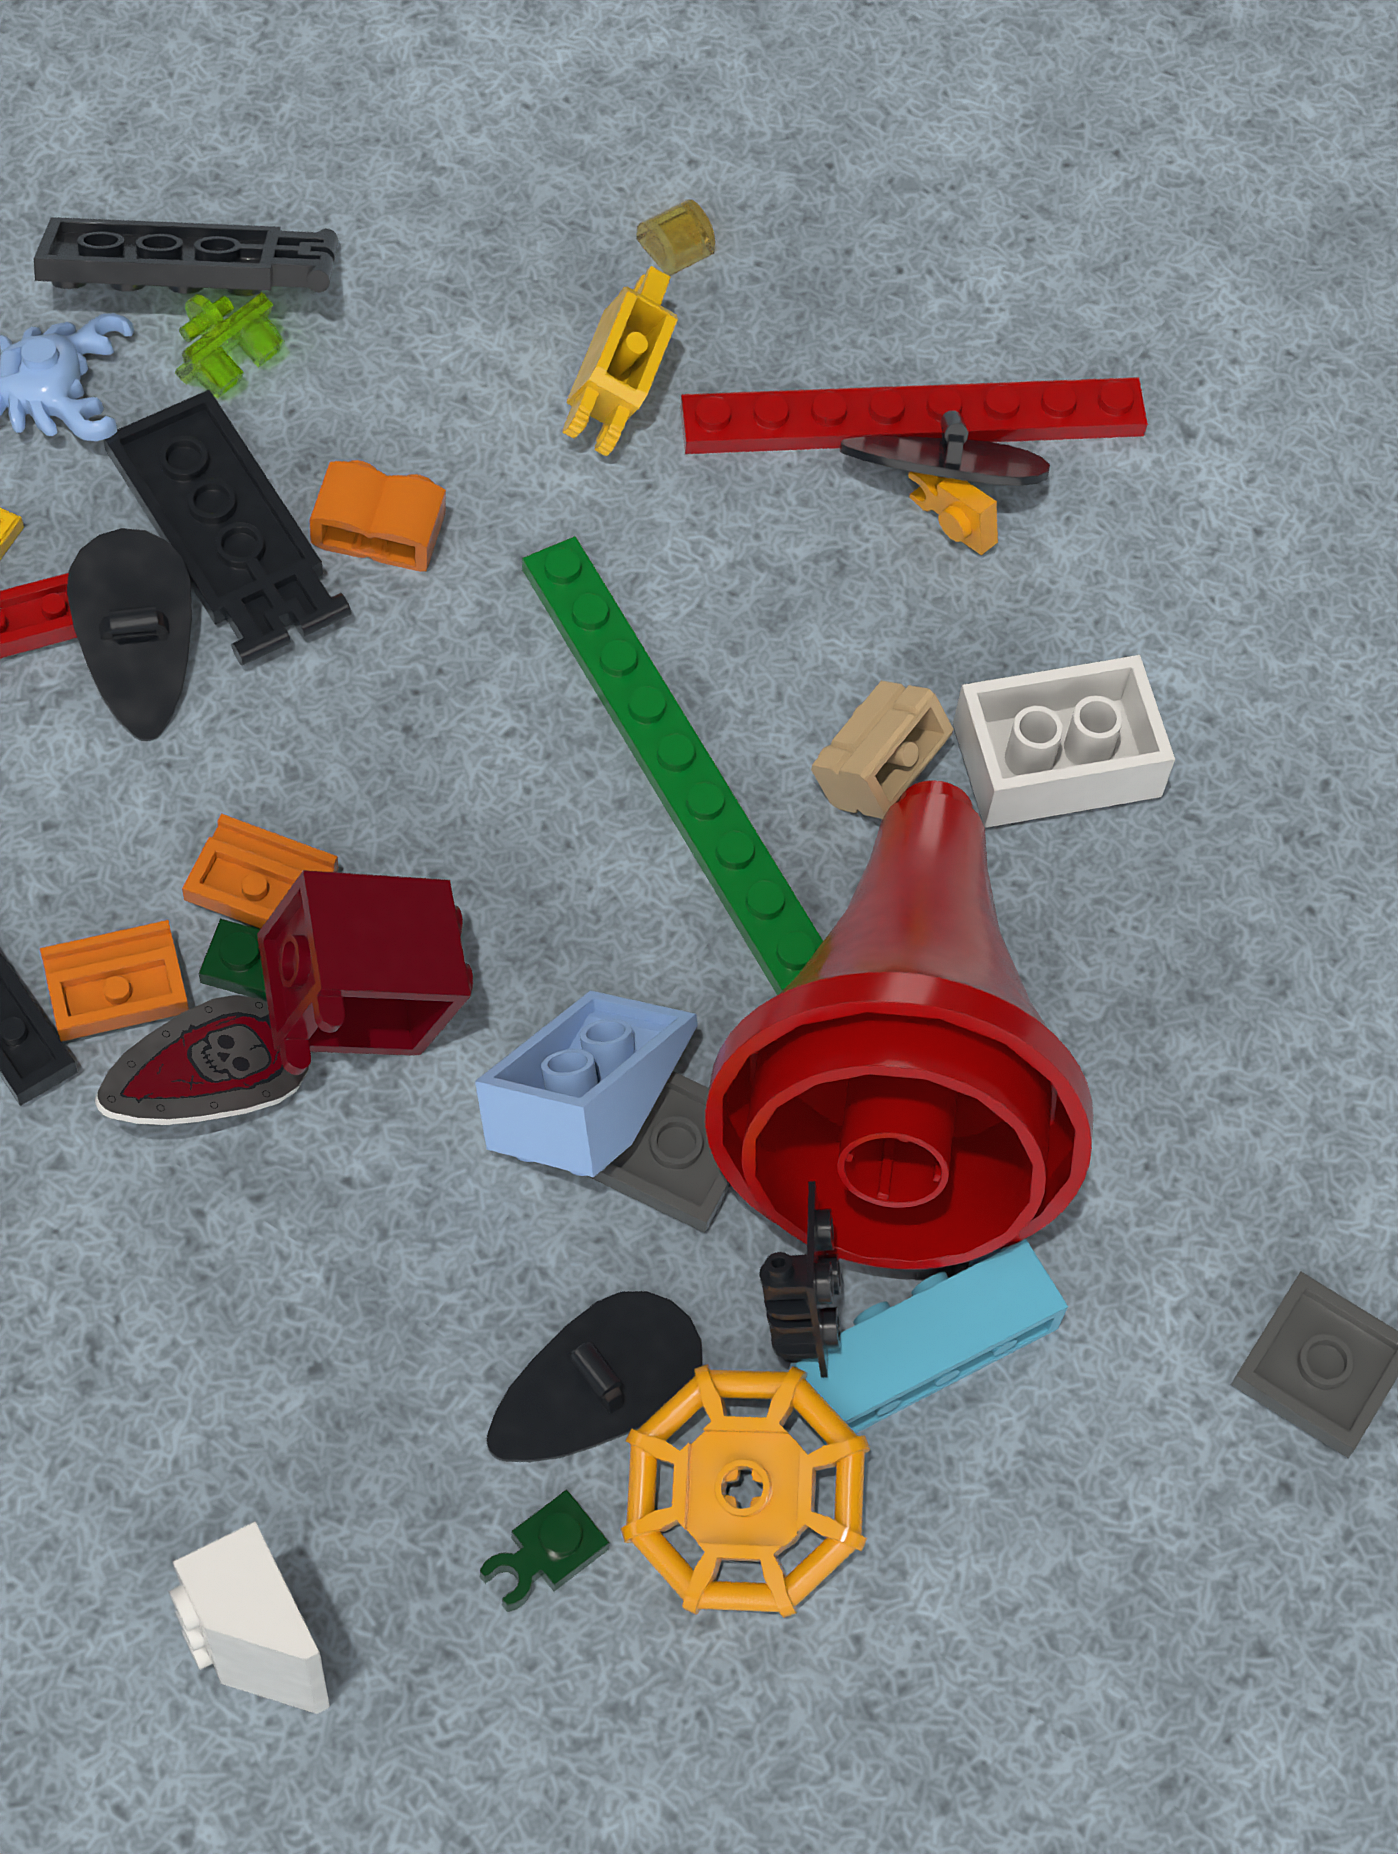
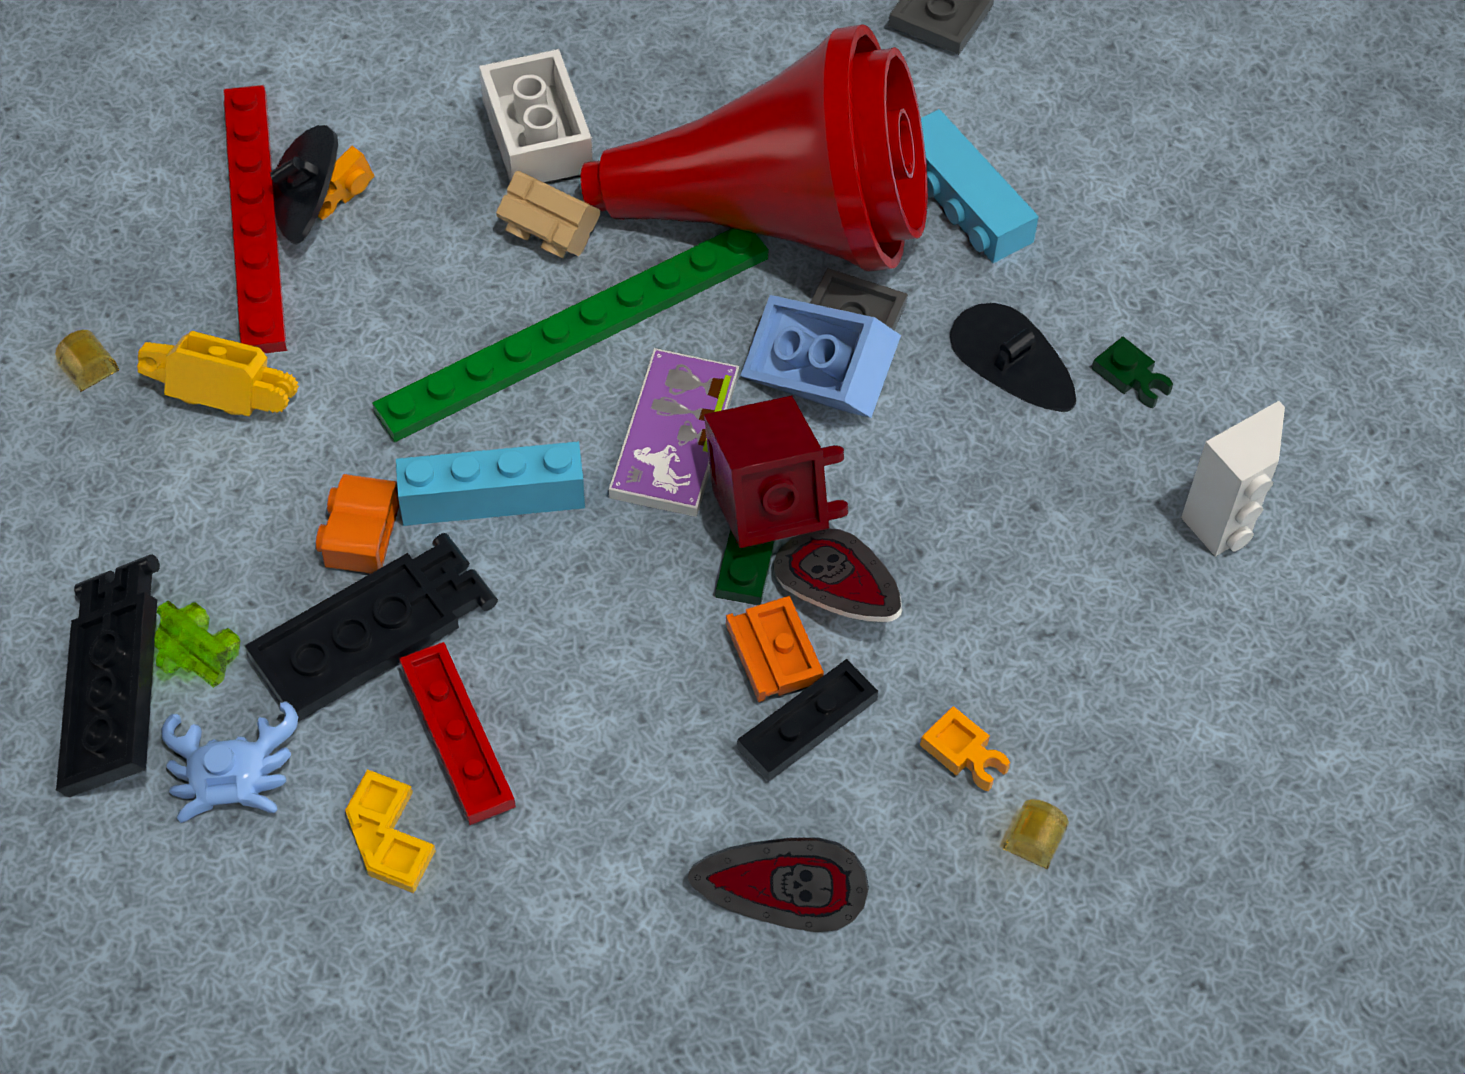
camera: 90 degrees left, 5 degrees down
(133, 625) = (472, 670): black shield -> none
(249, 870) = (680, 568): orange plate -> none
(417, 659) = (490, 483): none -> medium azure brick
(515, 895) = (666, 442): none -> medium lavender tile
(773, 1518) = (1069, 280): light orange plate -> none
(800, 1291) = (965, 204): black hinge -> none

